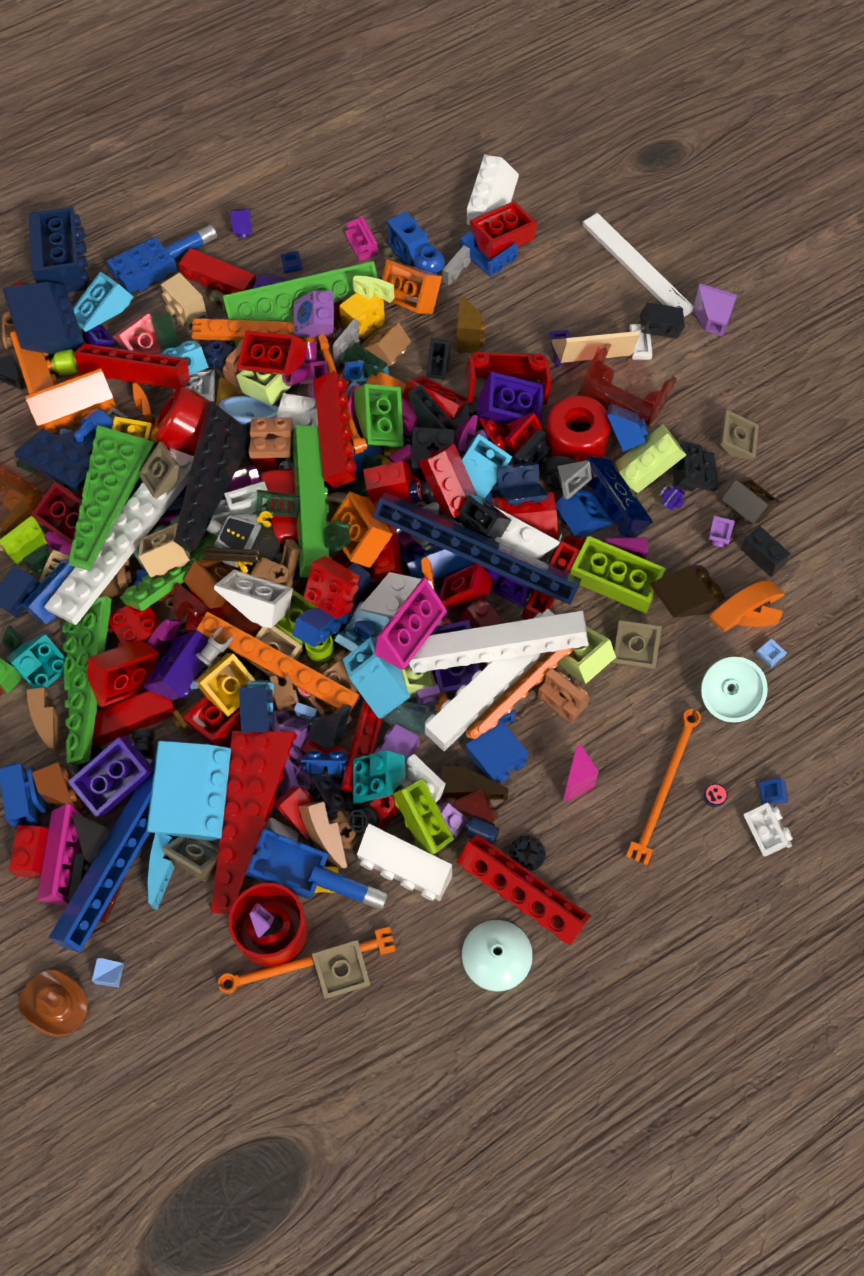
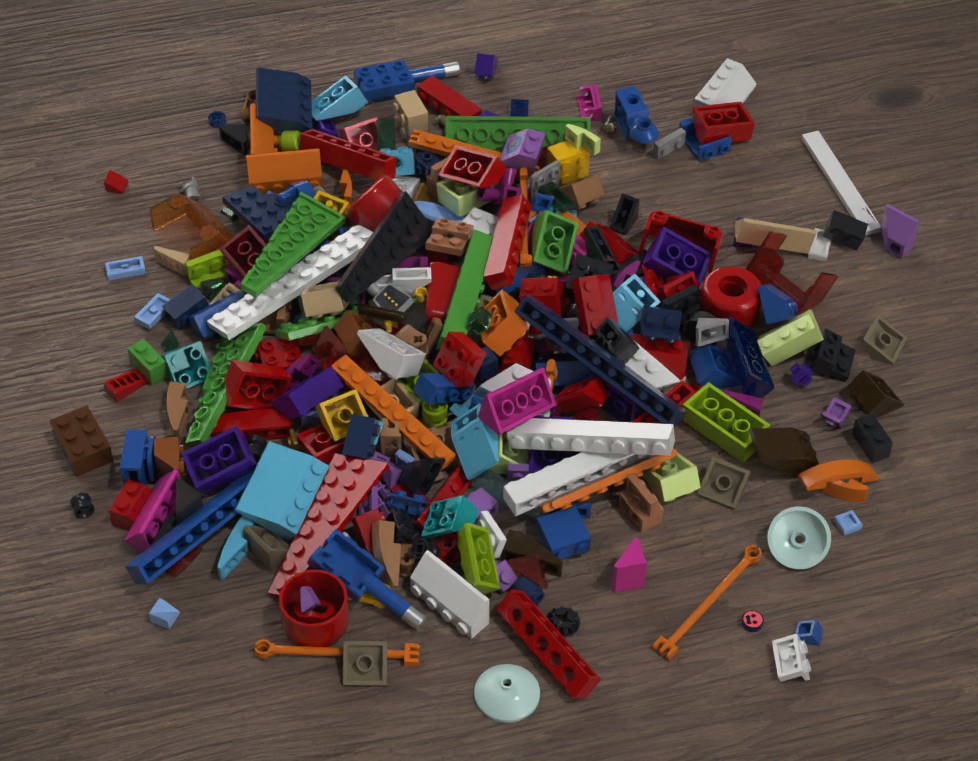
camera: 15 degrees right, 15 degrees down
(53, 1003) = (112, 624): dark orange hat -> none
(58, 248) = (315, 49): dark blue brick -> none
(160, 471) = (342, 237): dark tan slope -> none
(213, 648) = (341, 382): light grey piece -> none
(260, 494) = (423, 273): clear green slope -> none
(413, 286) = (620, 150): orange slope -> none
(414, 488) = (562, 308): clear blue tile -> none
(469, 328) = (661, 193): pearl gold slope -> none

